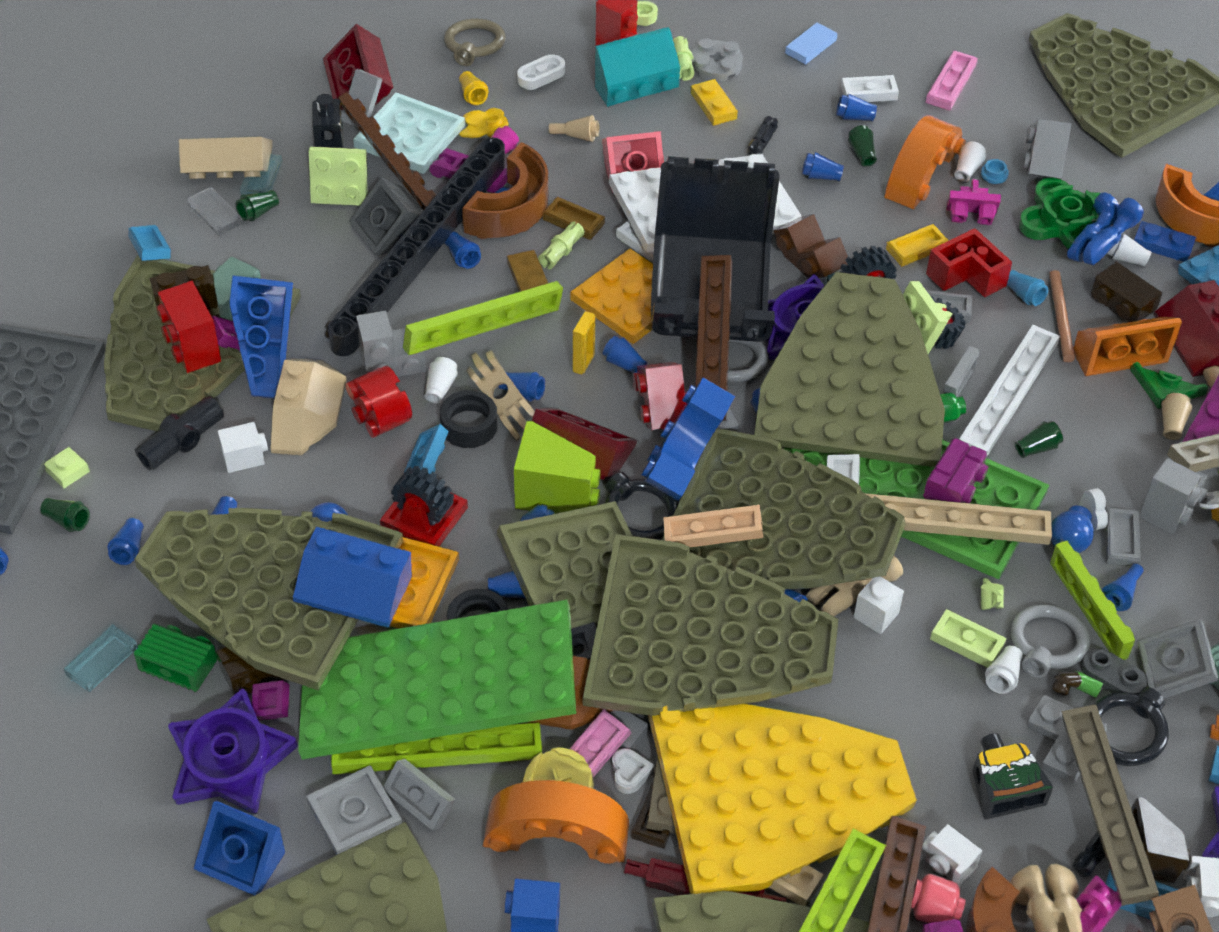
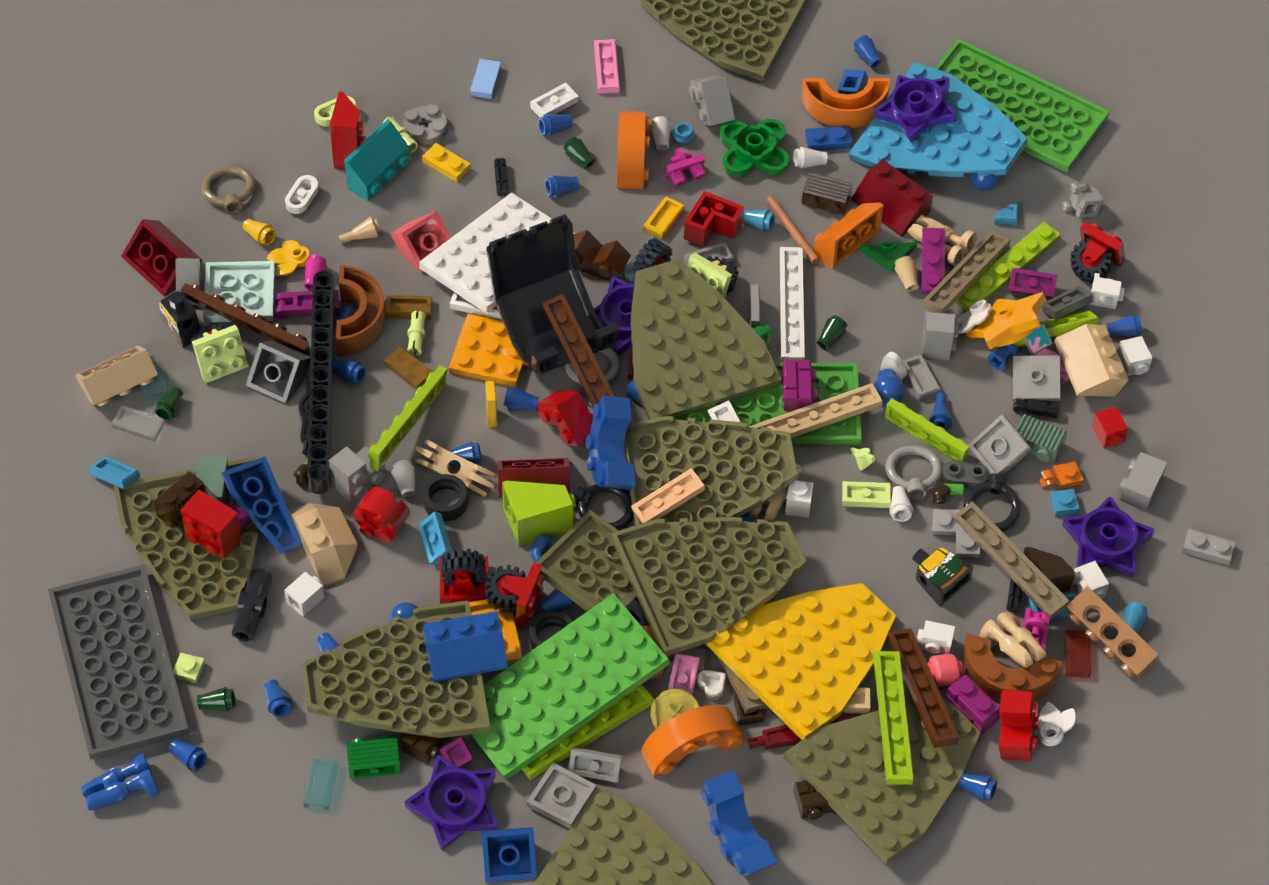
camera: 30 degrees left, 5 degrees up
(465, 549) = (513, 590): none -> plate
(1106, 232) = (788, 163): blue piece -> none

